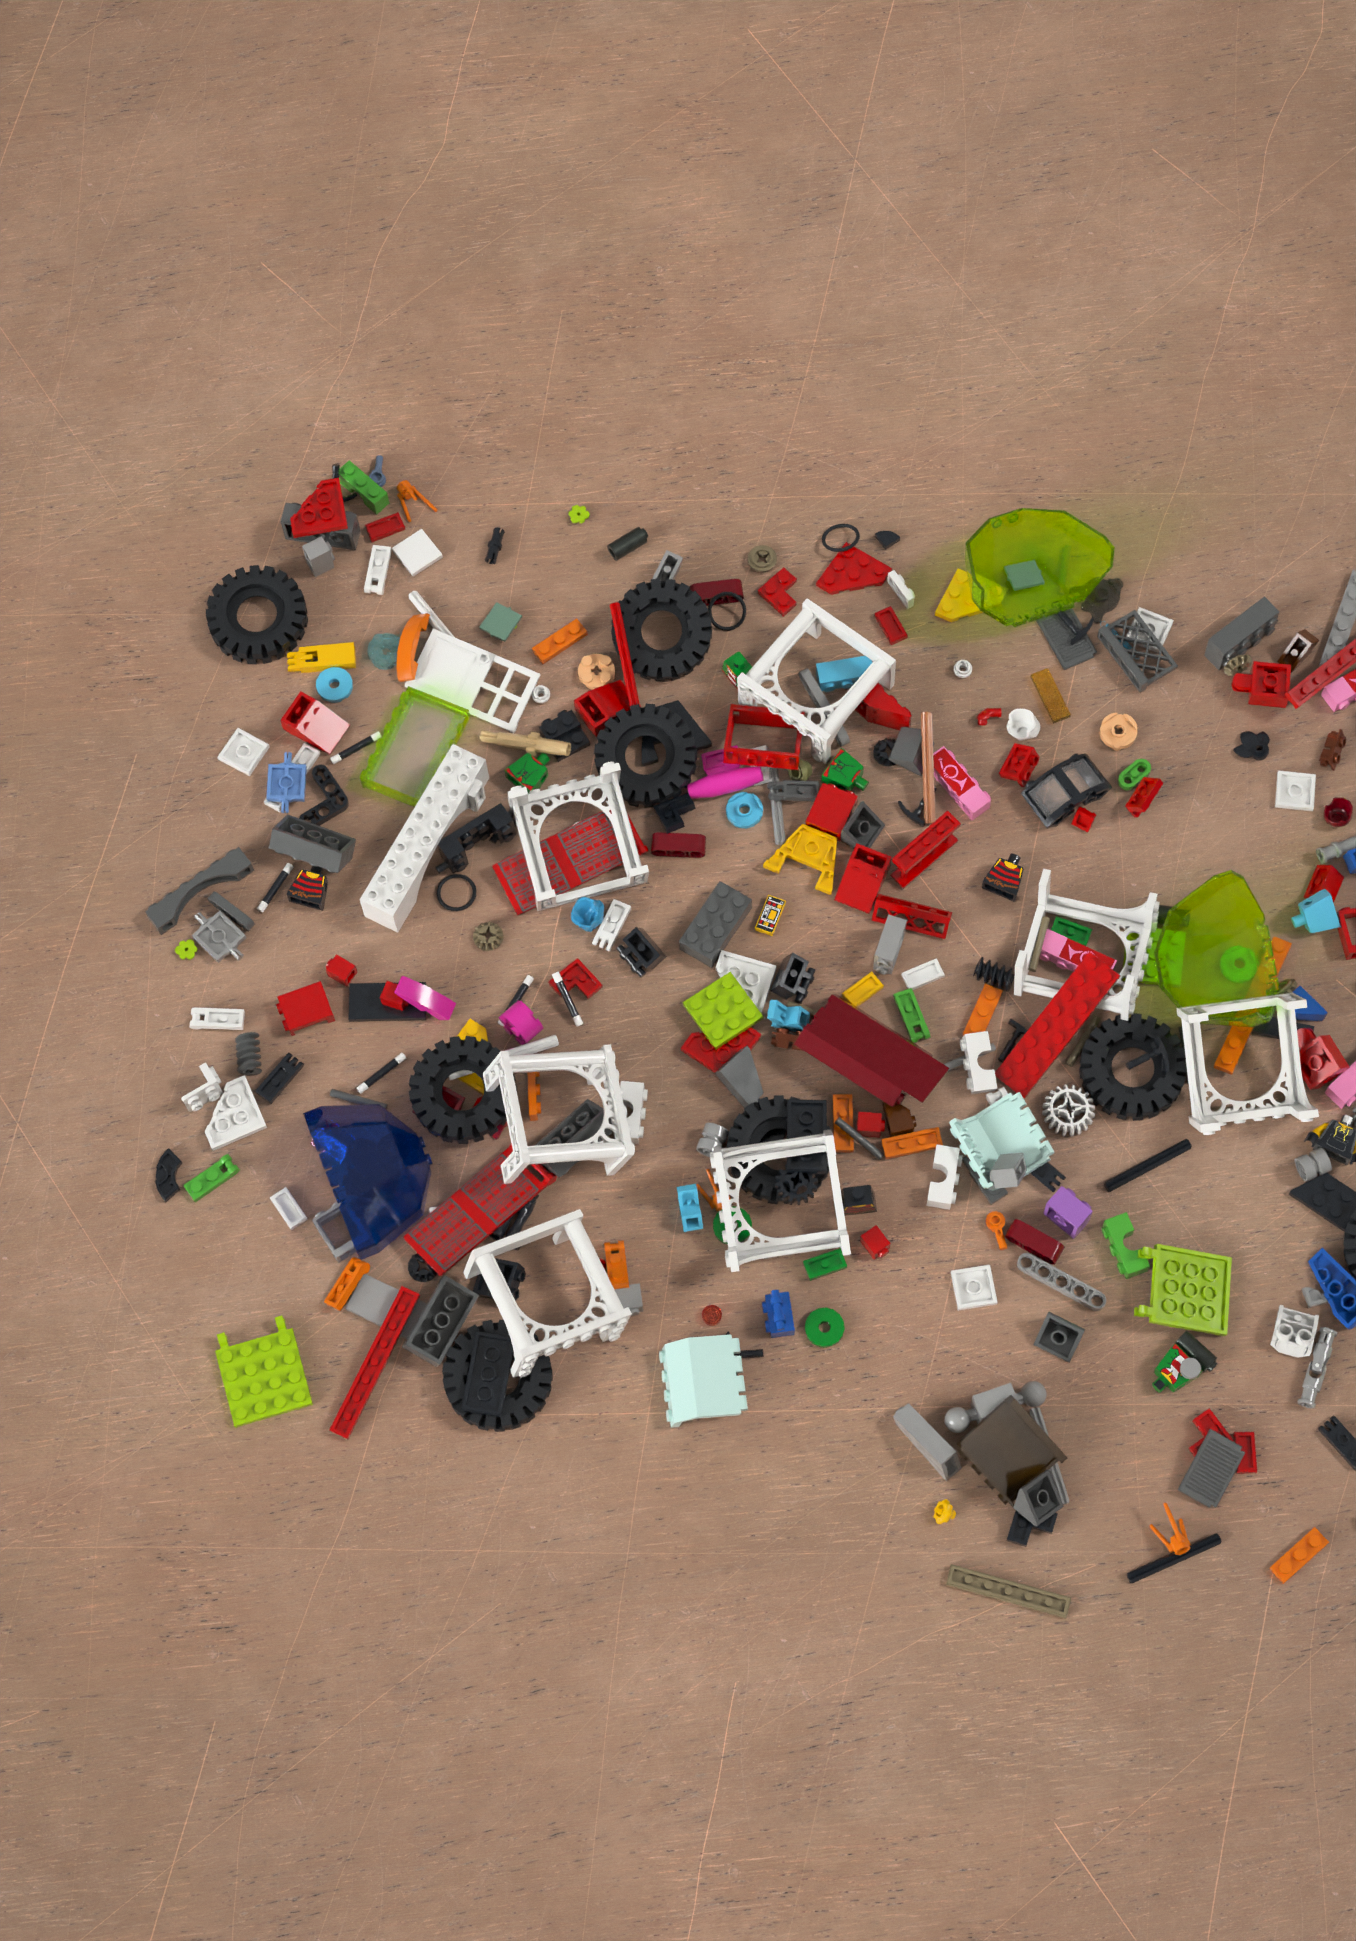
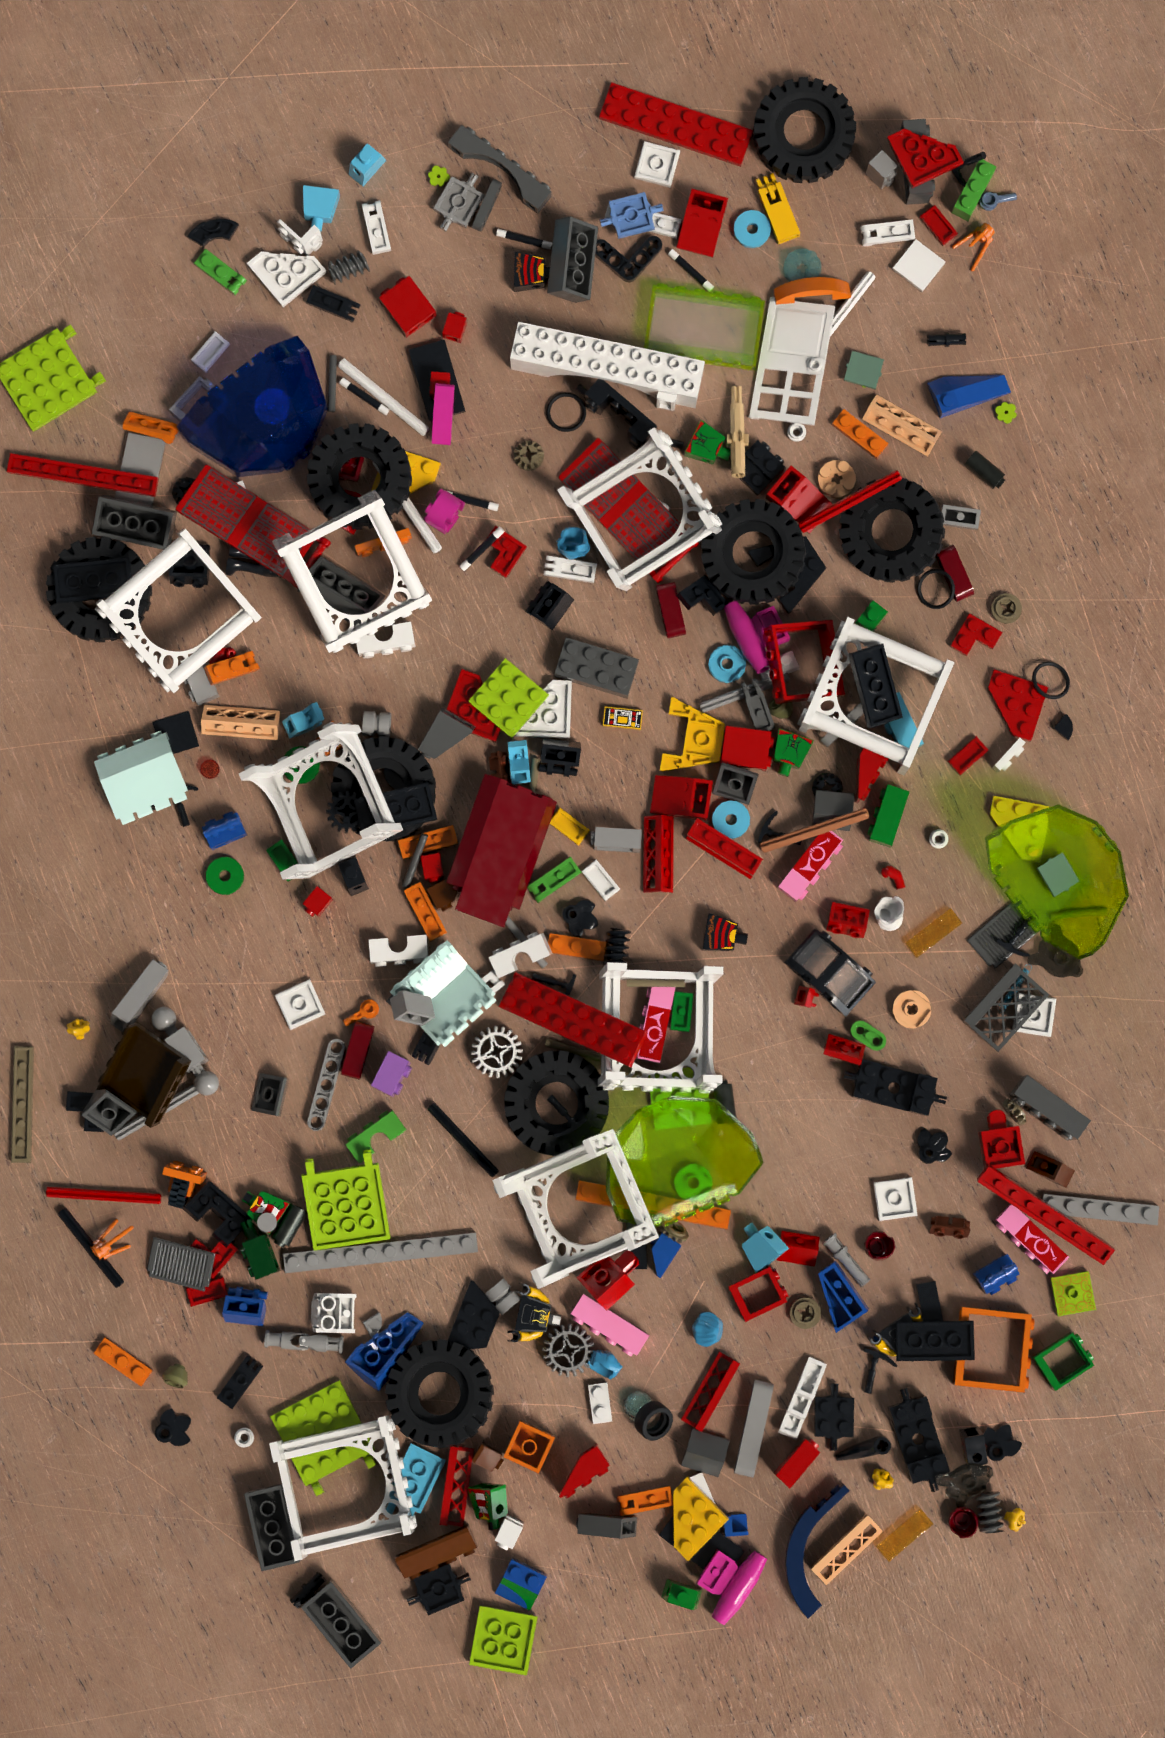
camera: 70 degrees right, 15 degrees up
(151, 1008) = (366, 163): none -> medium azure torso
(177, 1065) = (319, 204): none -> medium azure torso
(210, 726) = (676, 124): none -> red plate
(387, 1055) = (383, 397): none -> white axle
(548, 550) = (959, 393): none -> blue wedge
(563, 603) = (901, 426): none -> light nougat fence
(660, 1334) = (179, 730): none -> black piece
(676, 1272) = (240, 725): none -> light nougat fence
(809, 669) = (875, 685): none -> black tile
(890, 834) = (731, 808): none -> medium azure tile
(924, 699) = (888, 815): none -> green brick
(956, 1000) = (583, 917): none -> black plate
(1122, 1531) = (103, 1195): none -> red axle
(1129, 1444) = (182, 1182): none -> orange plate
(1176, 1404) = (214, 1199): none -> black plate
(1198, 746) = (915, 1090): none -> black brick
(1219, 1385) = (258, 1252): none -> dark green brick
(1242, 1273) = (380, 1252): none -> light grey plate
(1272, 1417) = (245, 1310): none -> blue brick
(1326, 1503) = (176, 1376): none -> olive cone

